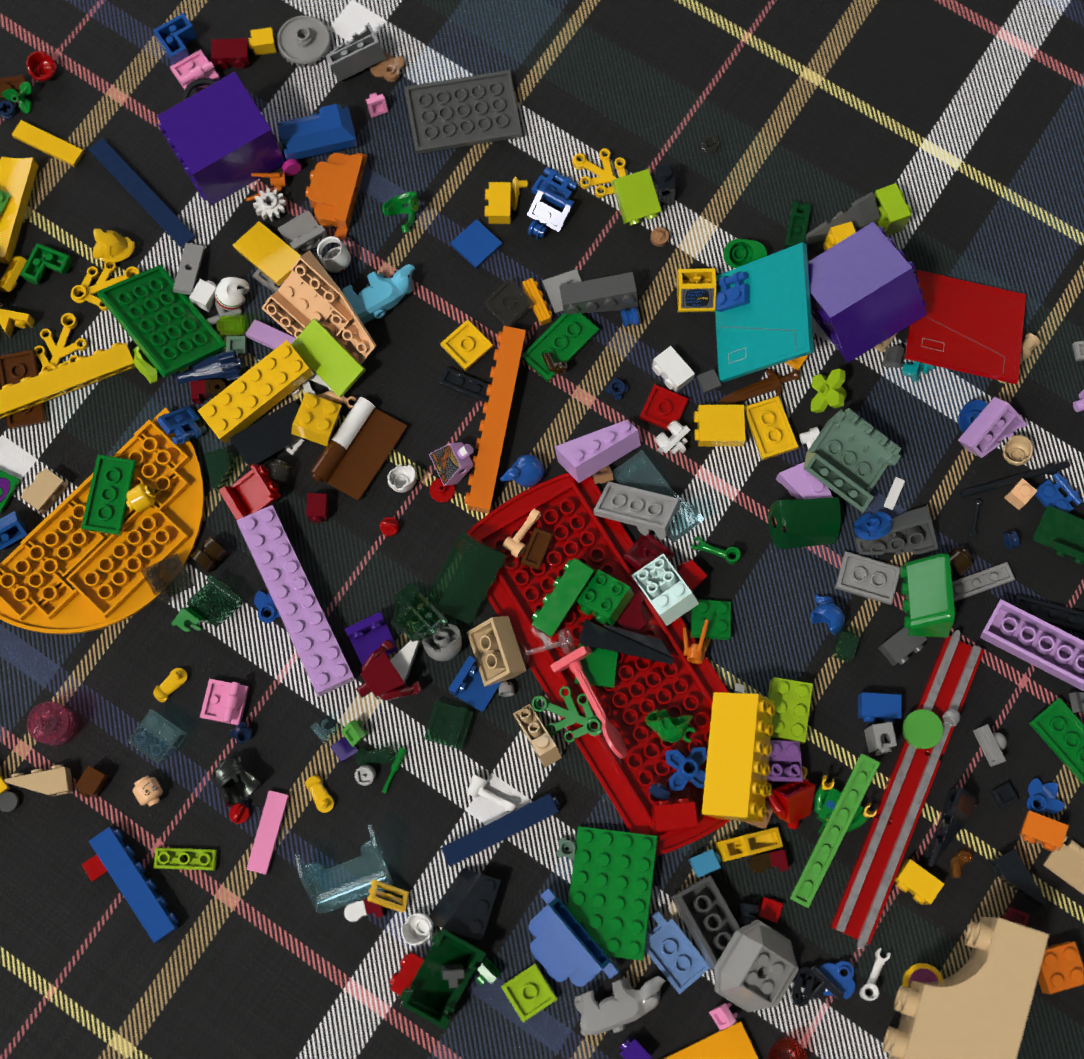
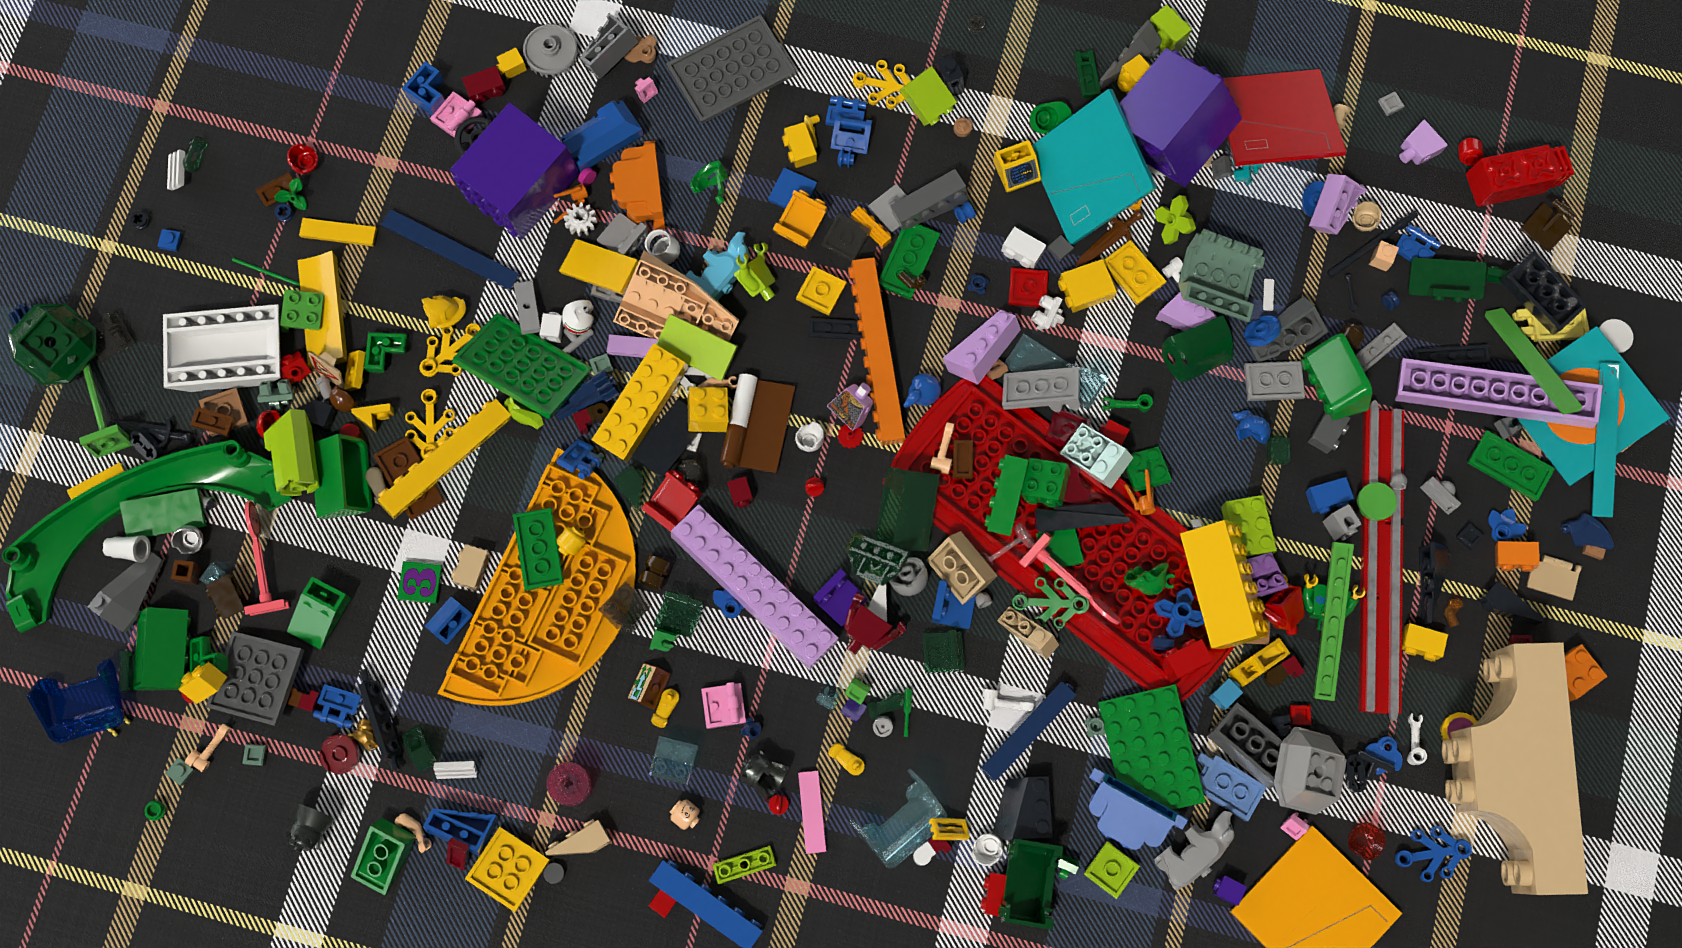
camera: 20 degrees left, 0 degrees up
(91, 782) = (628, 825): reddish brown brick -> none
(163, 659) = (649, 686): none -> panel
(231, 325) = (589, 347): clear neon green brick -> none
(409, 309) = (755, 274): none -> lime torso
(452, 973) = (1037, 877): dark grey tile -> none
(473, 271) = (801, 218): none -> light orange panel
(732, 297) = (1056, 161): blue plate -> none

